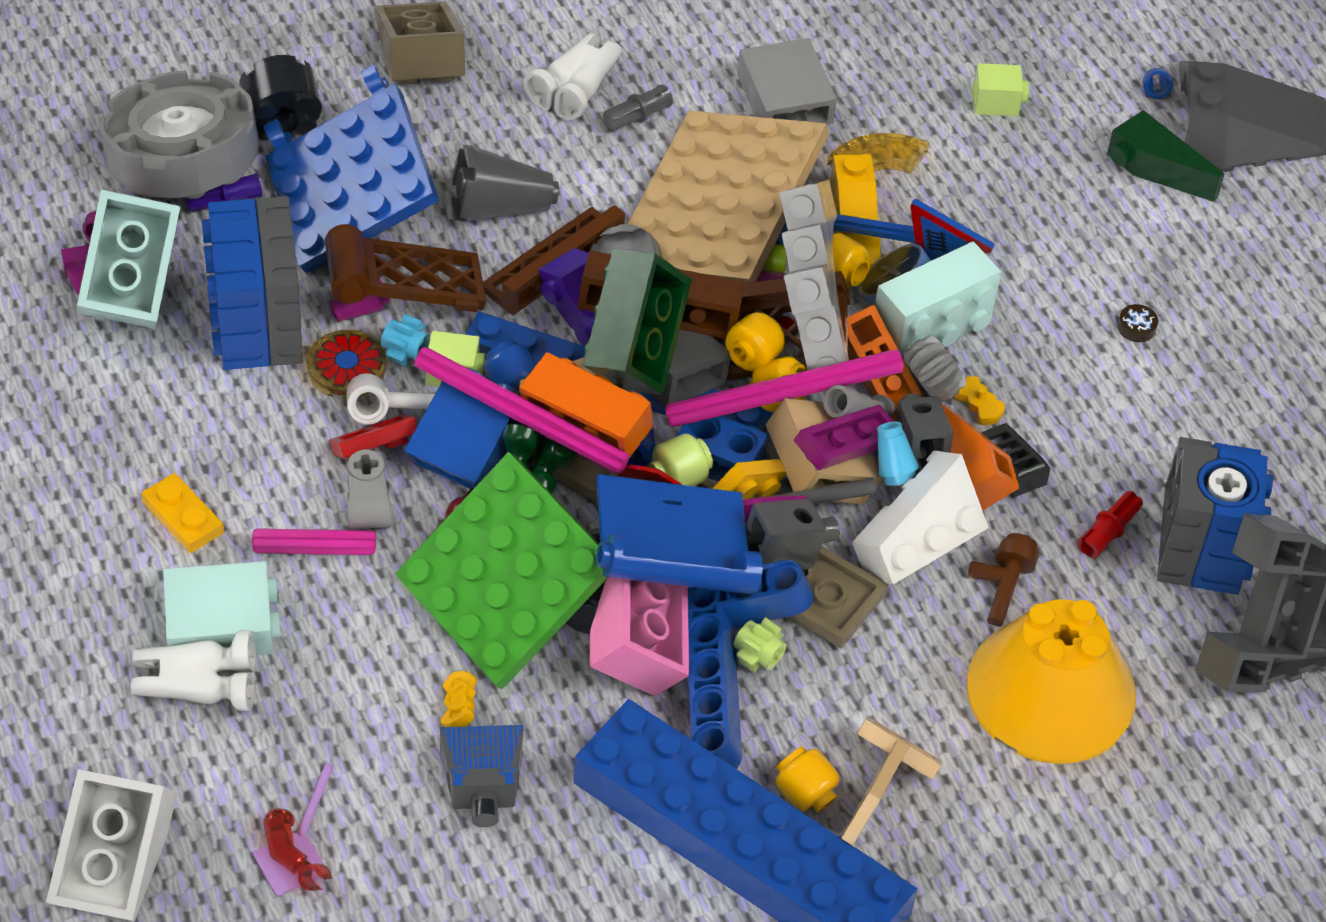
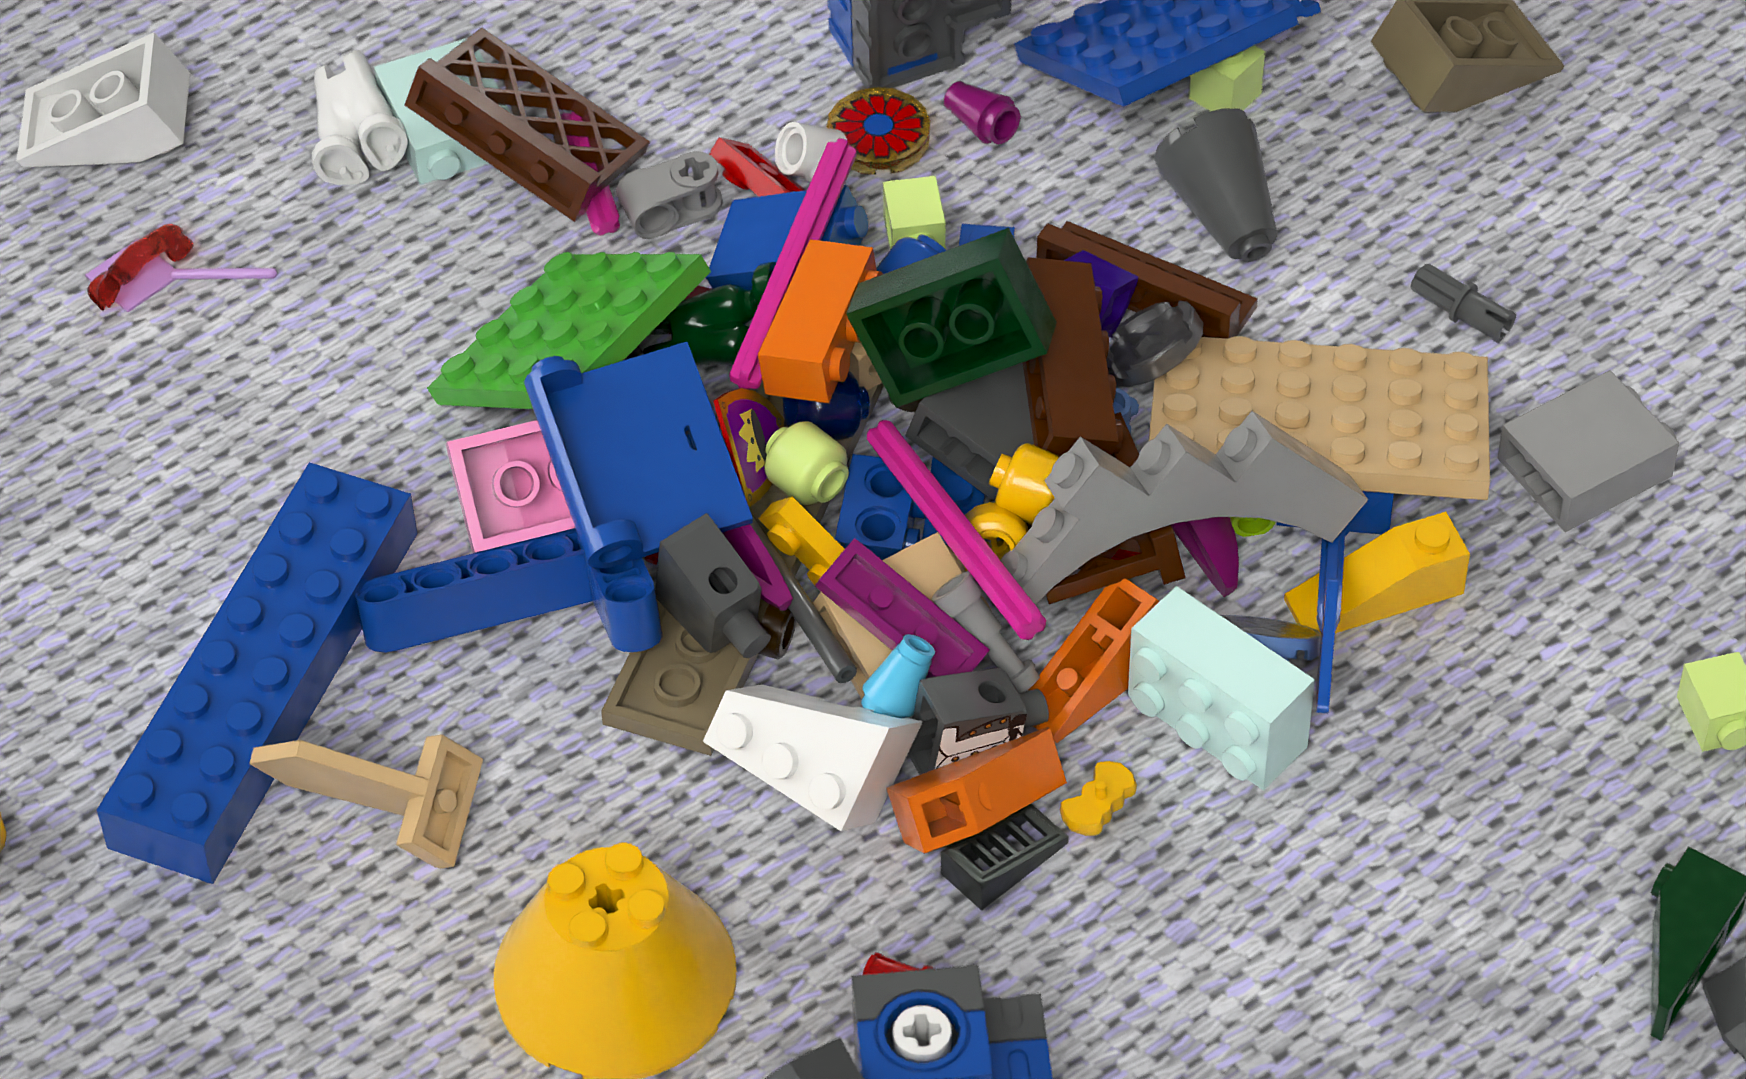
camera: 80 degrees right, 0 degrees up
(182, 512) = (592, 47): yellow plate -> none
(277, 569) = (515, 140): none -> reddish brown fence
(356, 271) = (1016, 69): reddish brown piece -> none
(404, 339) = (924, 157): medium azure gear -> none
(459, 699) = (392, 359): yellow piece -> none
(482, 768) = (291, 400): dark grey torso -> none
(572, 77) = (1490, 221): white piece -> none
(760, 645) = (561, 624): yellowish green gear -> none
(807, 779) = (368, 718): yellow head -> none
(850, 259) = (1269, 575): yellow head -> none
(887, 150) = (1526, 591): clear yellow tile -> none
(934, 368) = (1103, 714): light grey gear -> none
(1016, 555) = (817, 882): reddish brown piece -> none
(1137, 323) = (1335, 968): dark brown tile -> none

